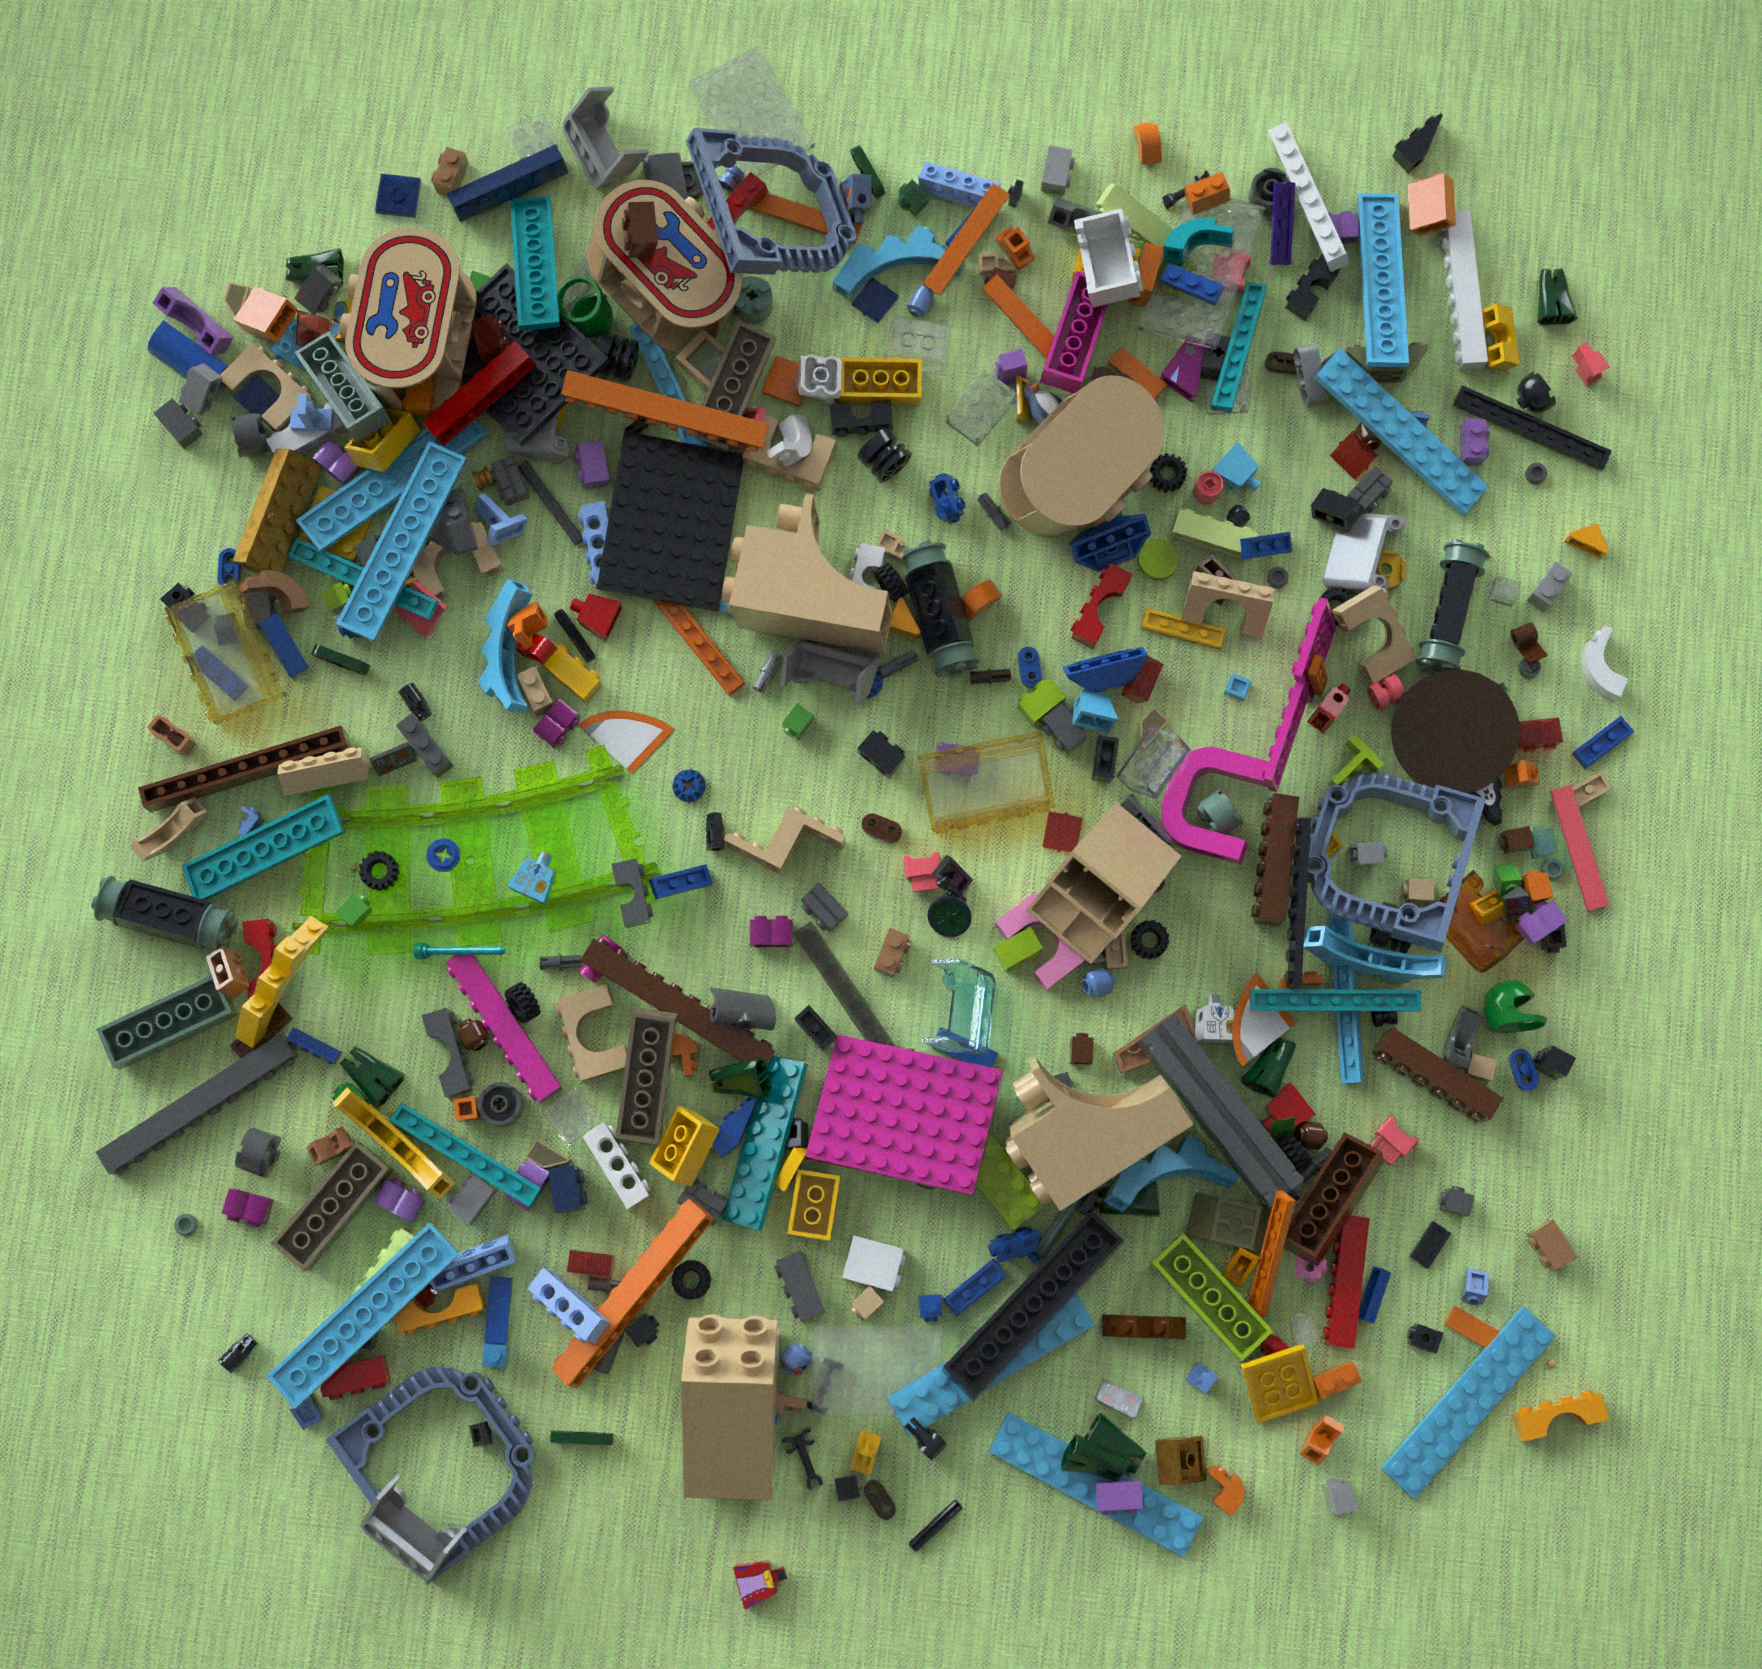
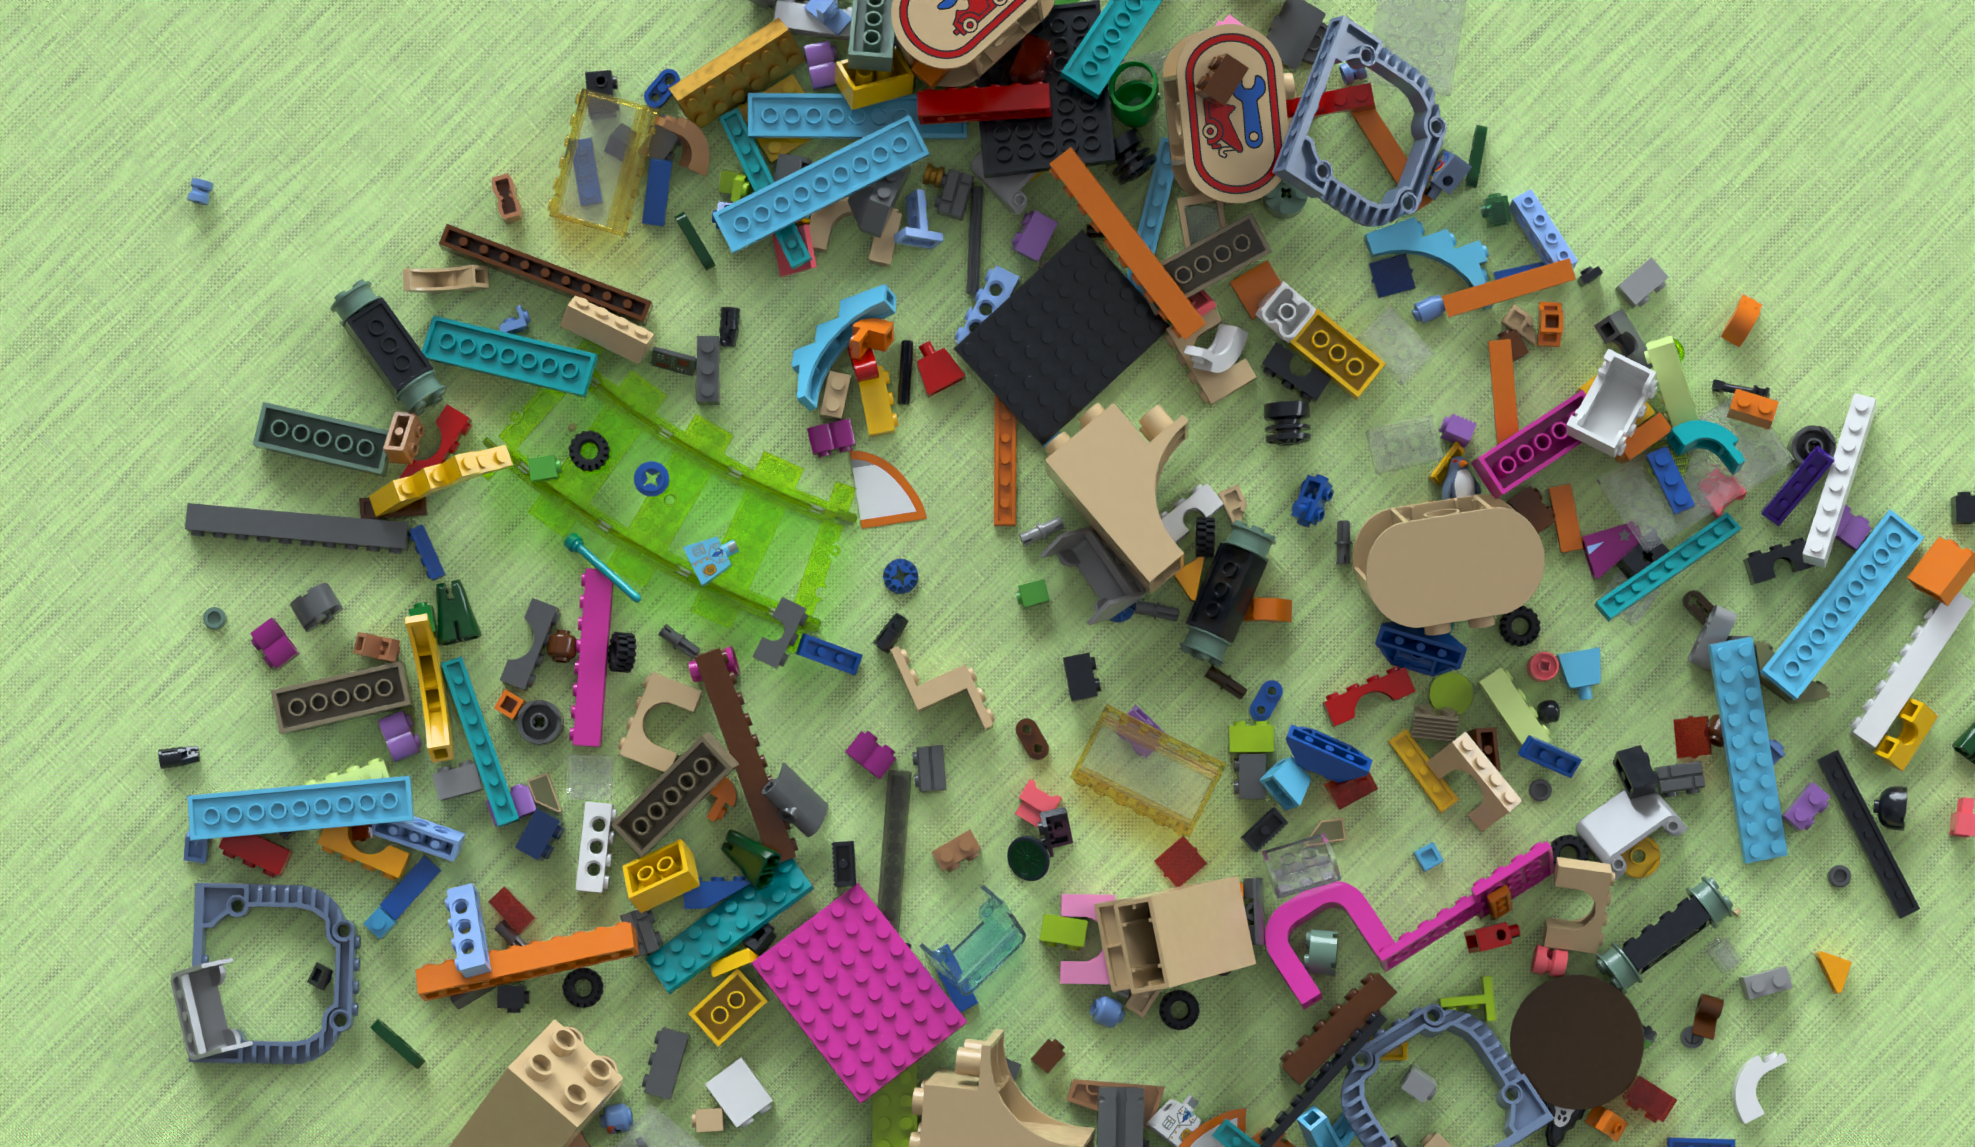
camera: 40 degrees right, 5 degrees up
(1164, 587) = (1434, 723): none -> dark tan brick

